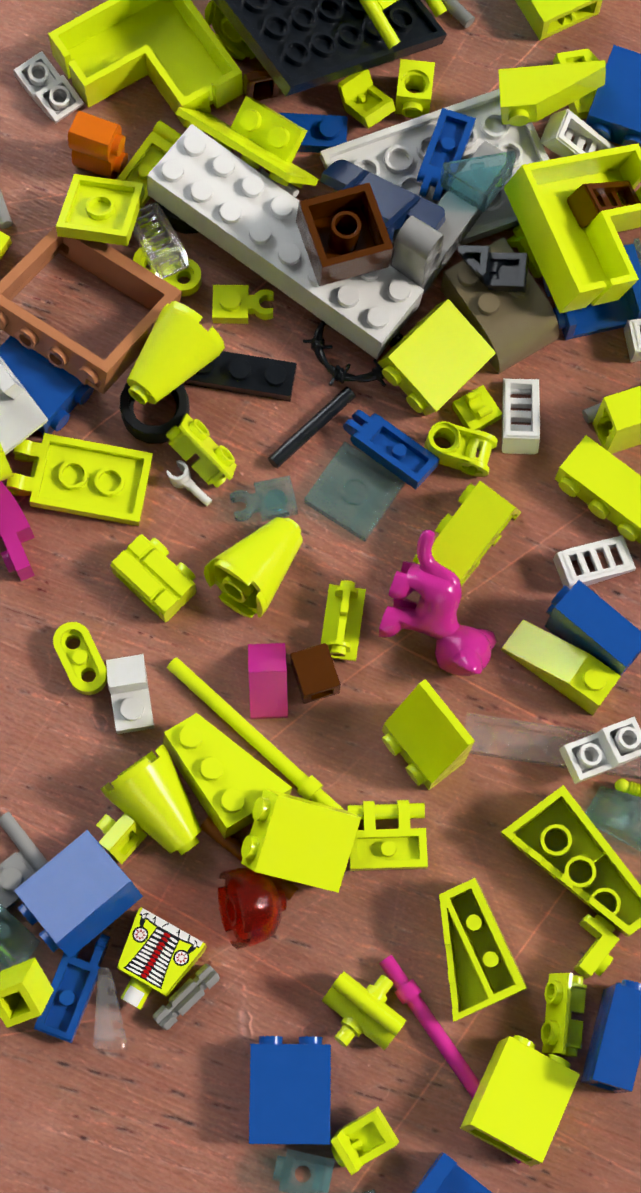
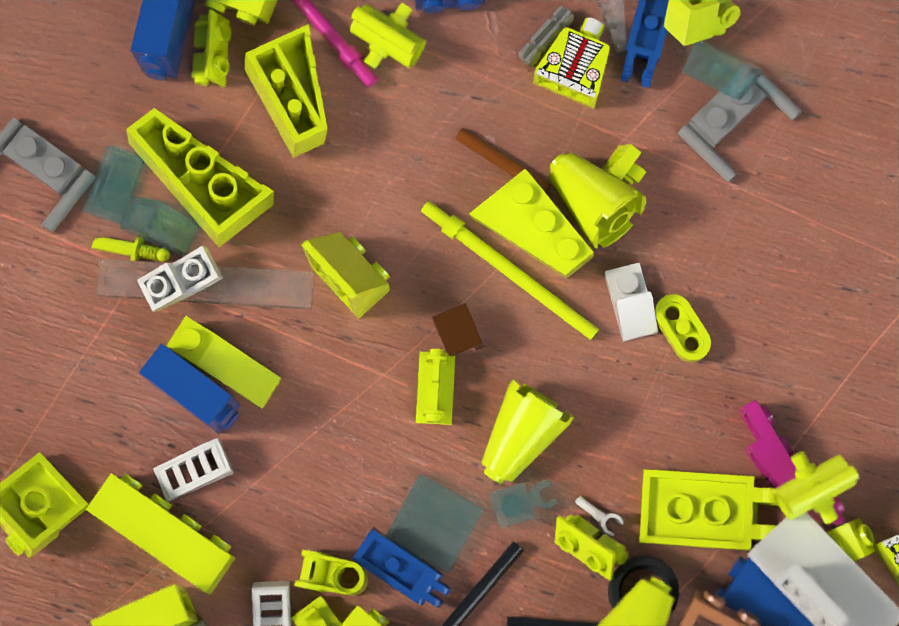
camera: 175 degrees left, 5 degrees up
(76, 895) = (654, 105): brick -> none
(154, 576) = (621, 413): neon yellow brick -> none
(250, 906) = (496, 110): clear red cylinder -> none
(267, 681) = (502, 327): dark pink slope -> none
(299, 840) = (457, 167): neon yellow brick -> none
(389, 847) = (378, 178): neon yellow plate -> none
(458, 647) = (351, 399): dark pink animal -> none
(471, 530) = (318, 477): neon yellow wedge -> none
(597, 957) = (182, 101): neon yellow bracket -> none

